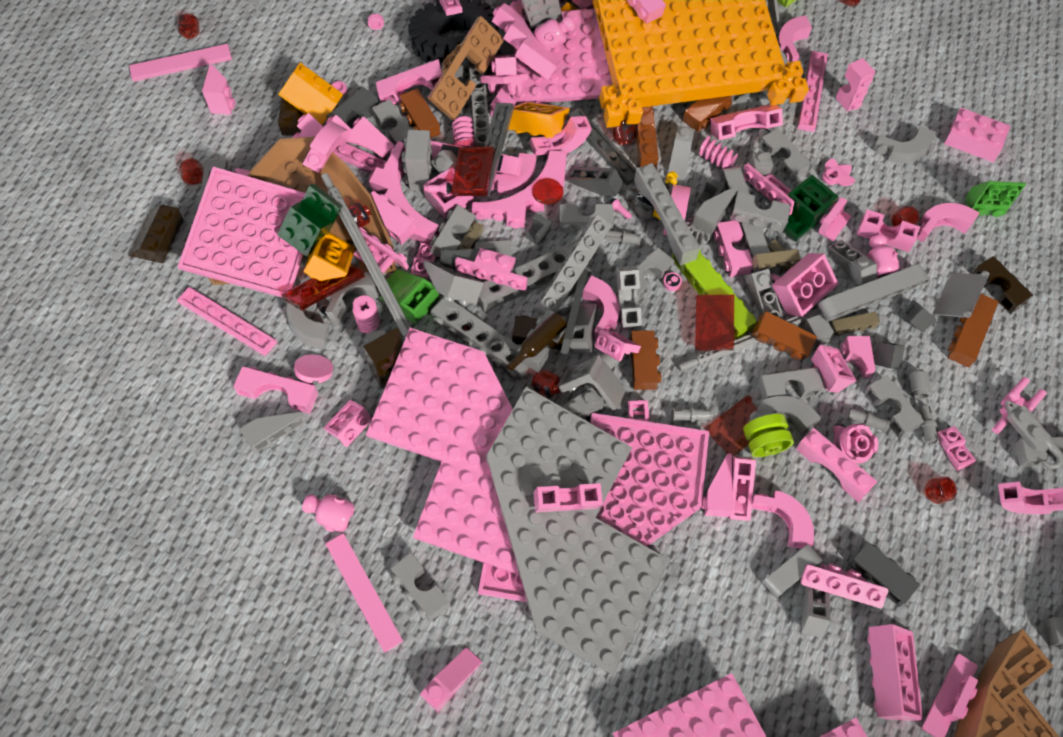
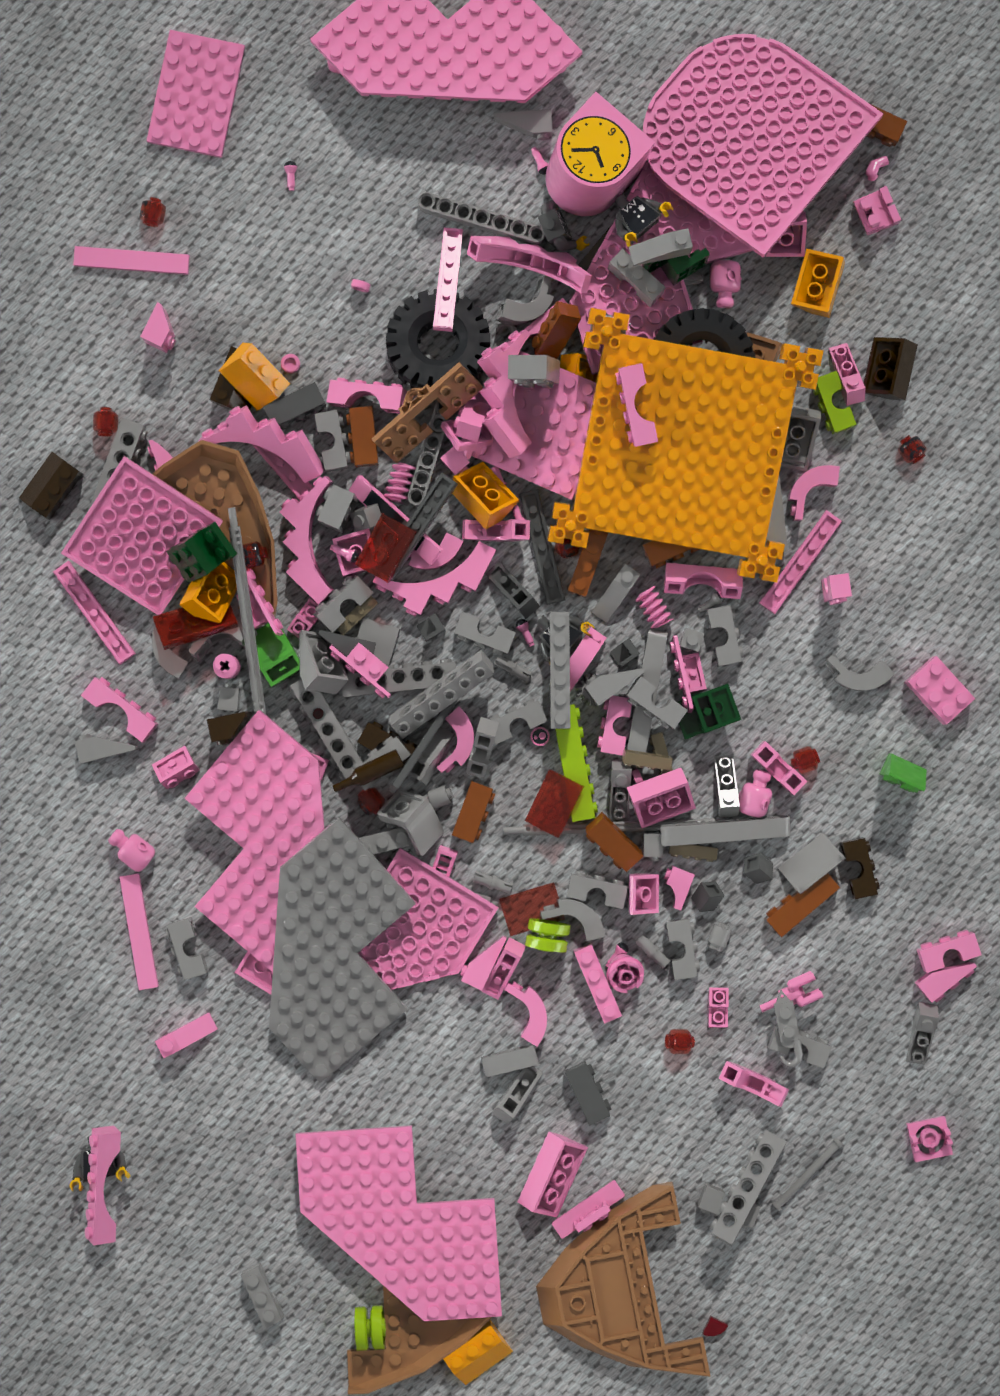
camera: 25 degrees right, 25 degrees up
(313, 368) = (160, 701): bright pink tile -> none
(323, 145) = (247, 464): bright pink arch -> none
(396, 223) = (287, 575): bright pink slope -> none
(547, 191) = (456, 591): clear red piece -> none
(552, 34) = (537, 403): bright pink piece -> none
(567, 499) = (324, 932): bright pink arch -> none
(615, 344) = (450, 791): bright pink bracket -> none
(834, 221) = (733, 735): bright pink bracket -> none
(839, 173) = (772, 677): bright pink plate -> none
(844, 584) = (547, 1088): bright pink bracket -> none
(929, 425) = (705, 978): light grey pin -> none
(947, 214) = (859, 774): bright pink arch -> none

